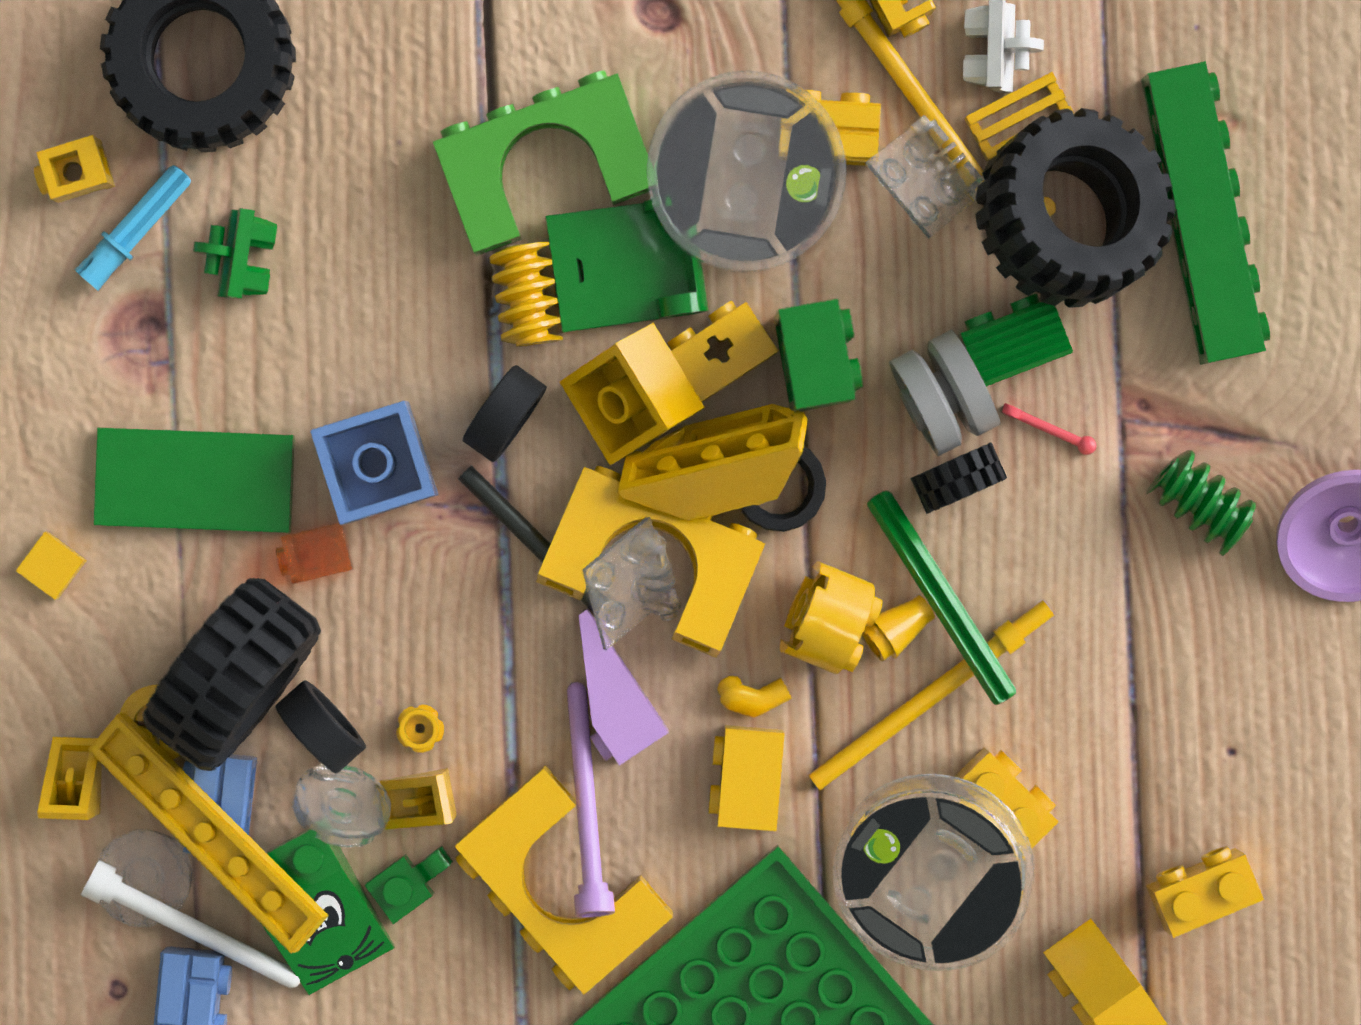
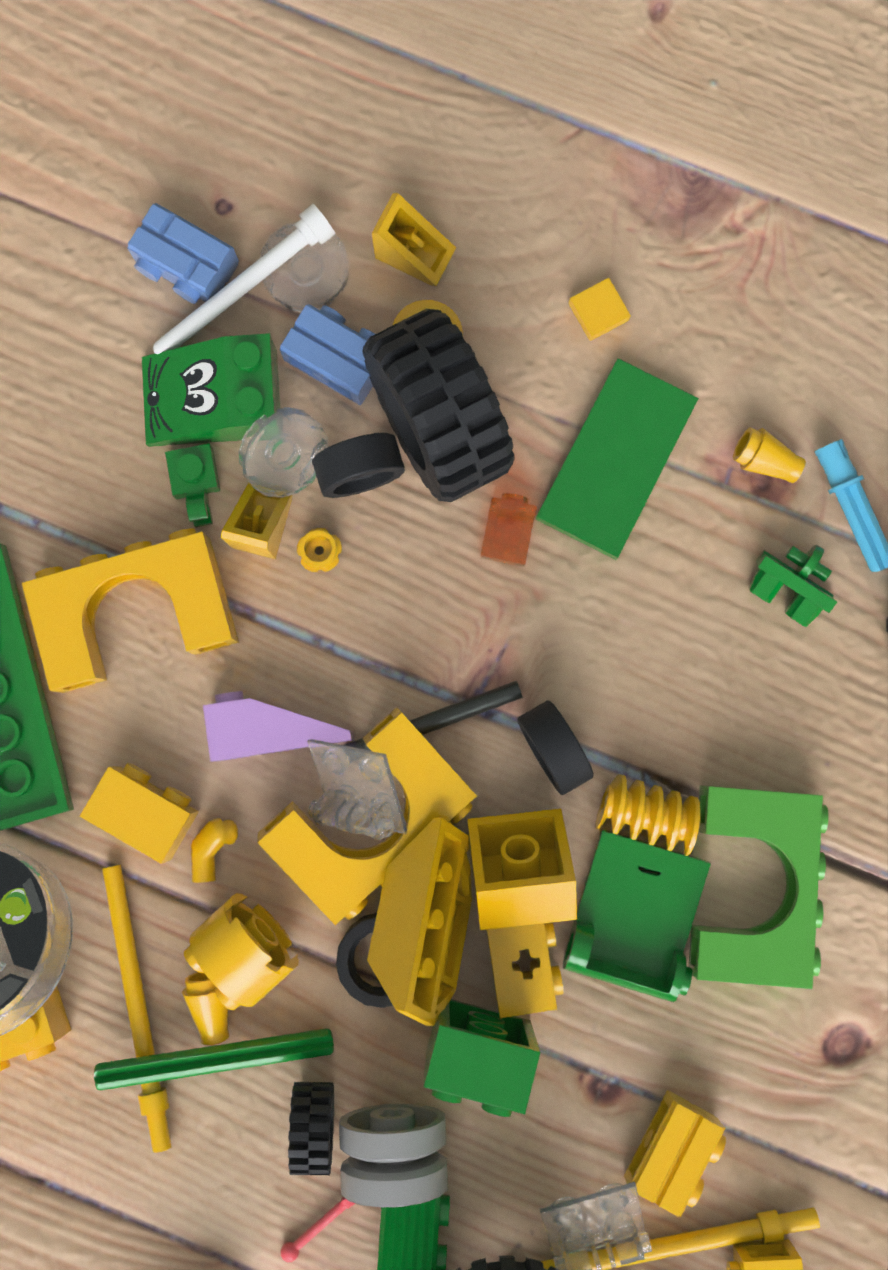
camera: 115 degrees right, 5 degrees down
(124, 334) = (766, 455): none -> yellow cone
(208, 833) = (306, 329): yellow tile -> none
(374, 462) = (564, 615): medium blue brick -> none
(593, 895) = (99, 630): lavender piece -> none
(746, 171) = (676, 1070): clear piece -> none

